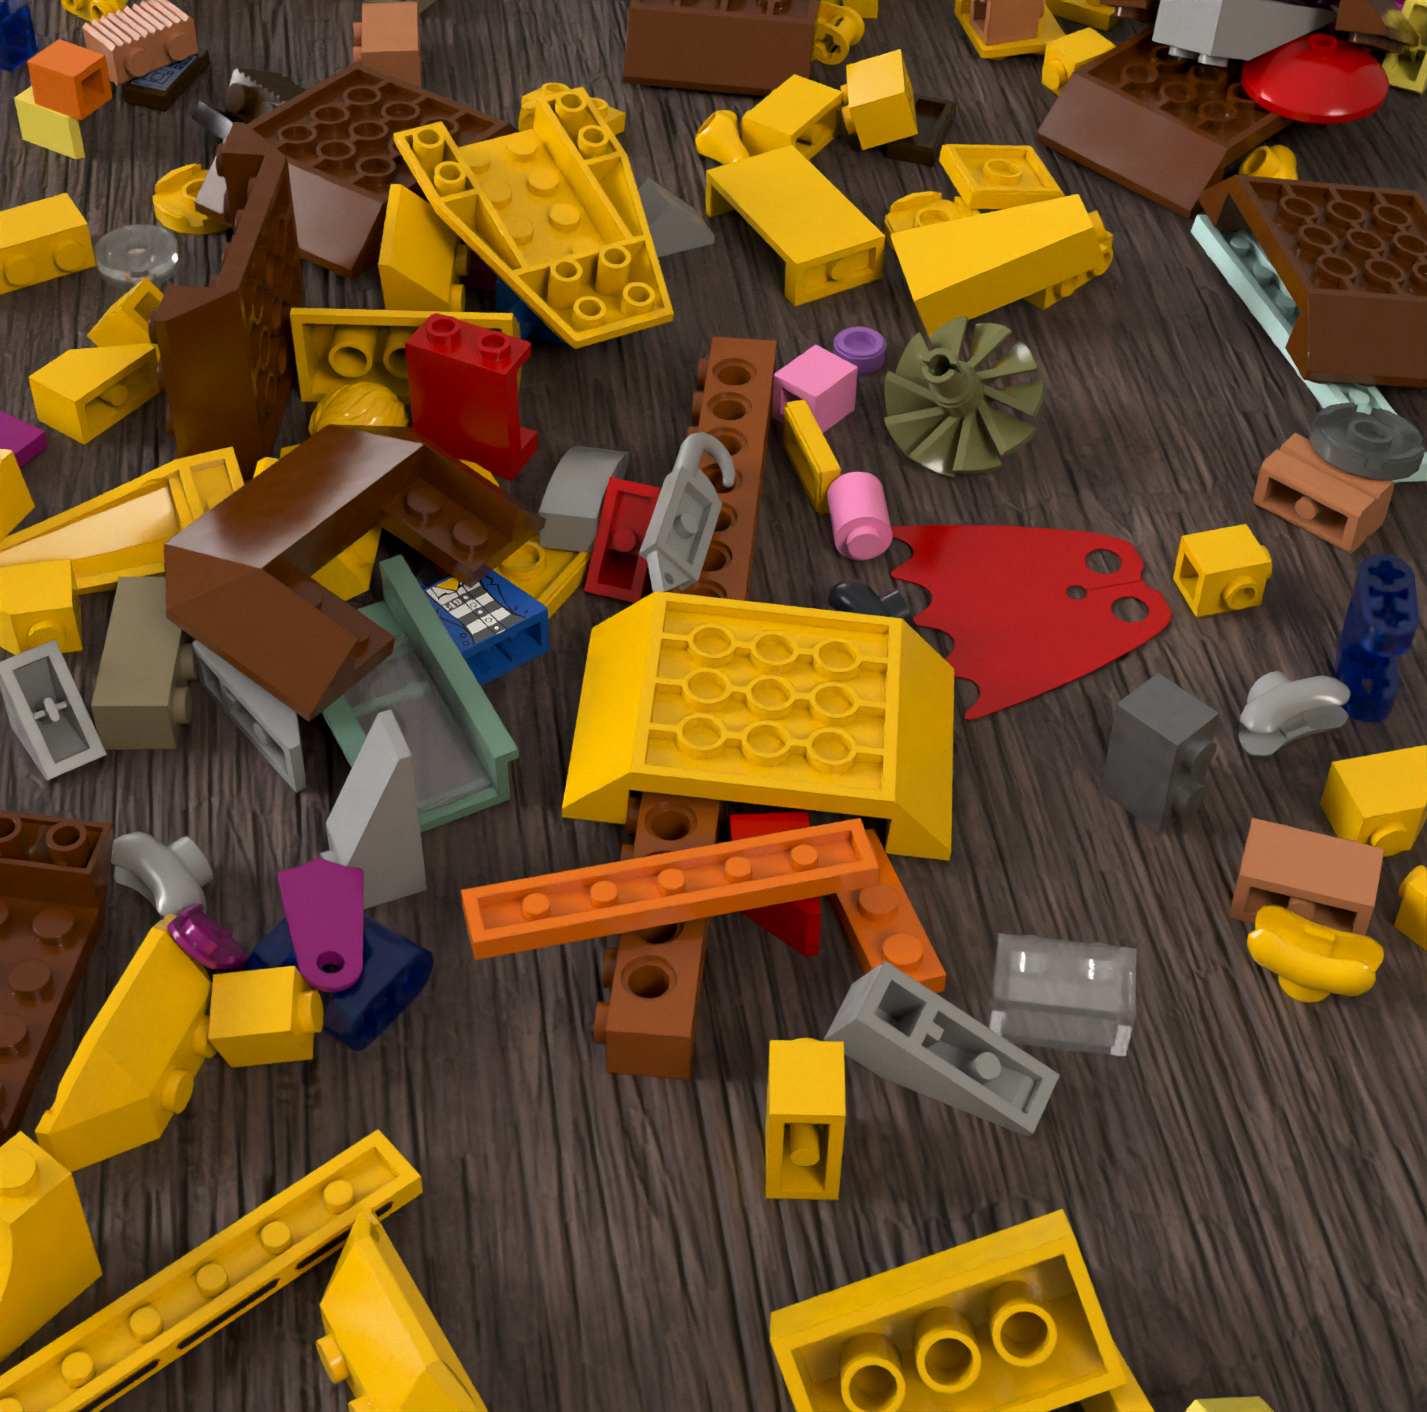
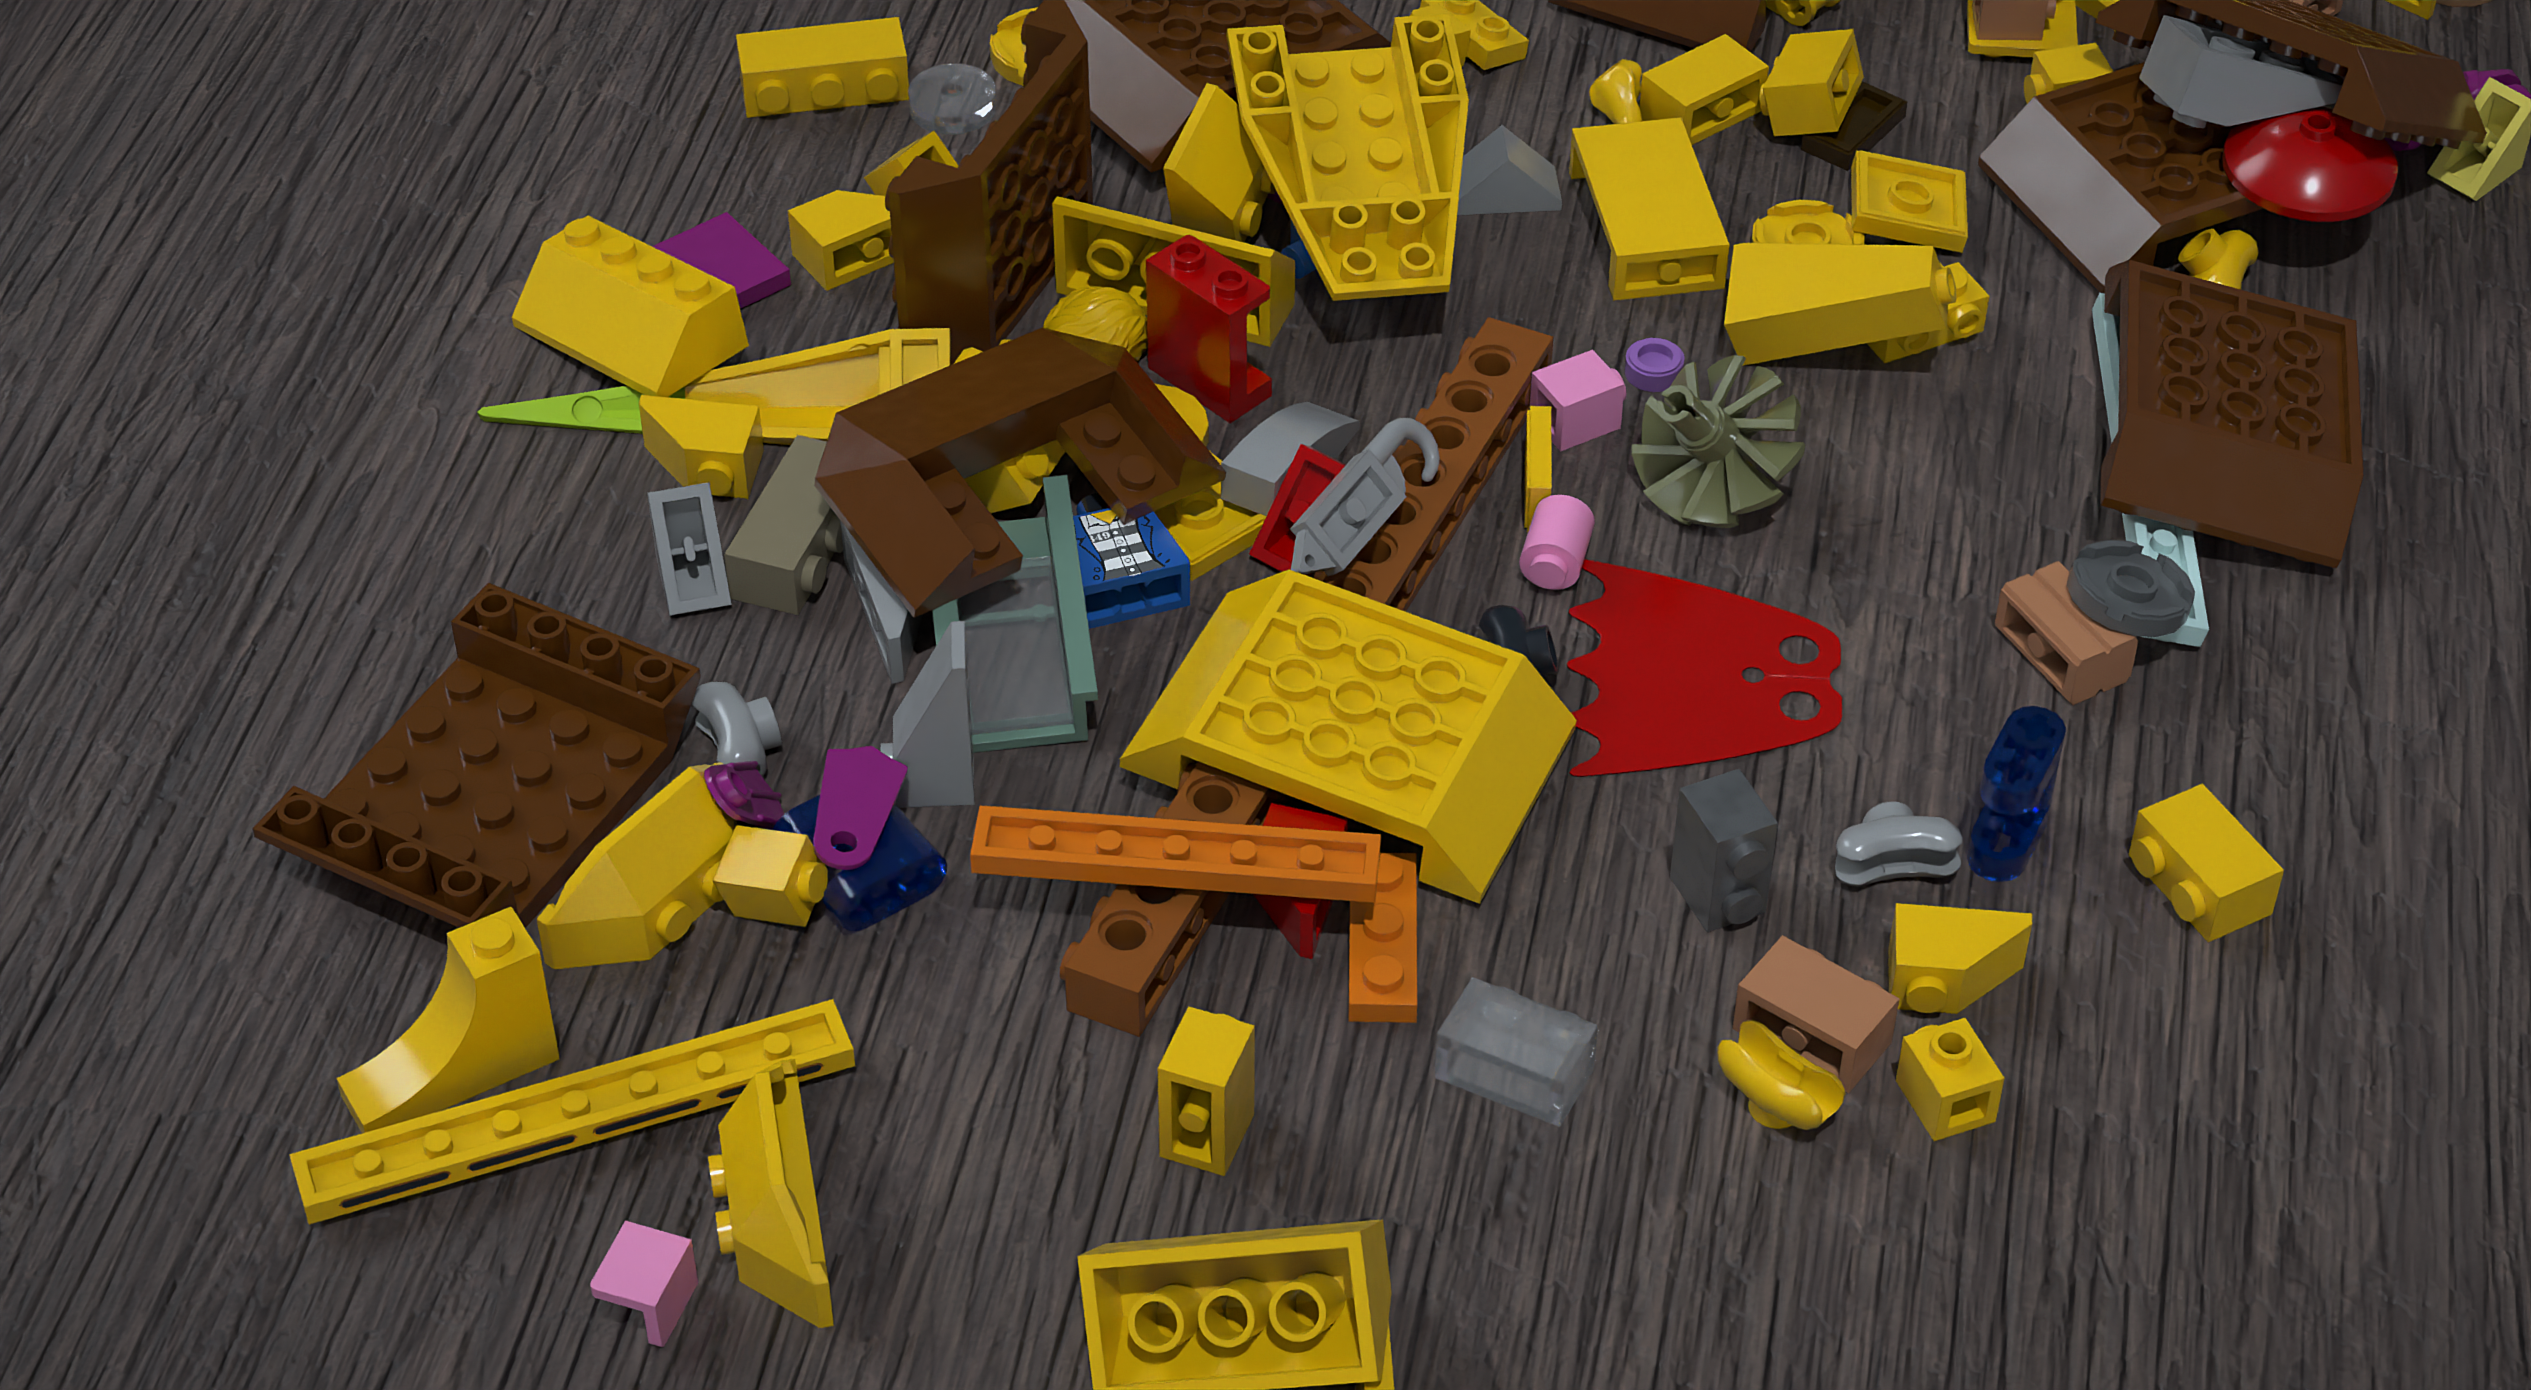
camera: 20 degrees right, 0 degrees up
(940, 1050) = (1373, 1071): light grey slope -> none
(1222, 570) = (1909, 687): yellow brick -> none

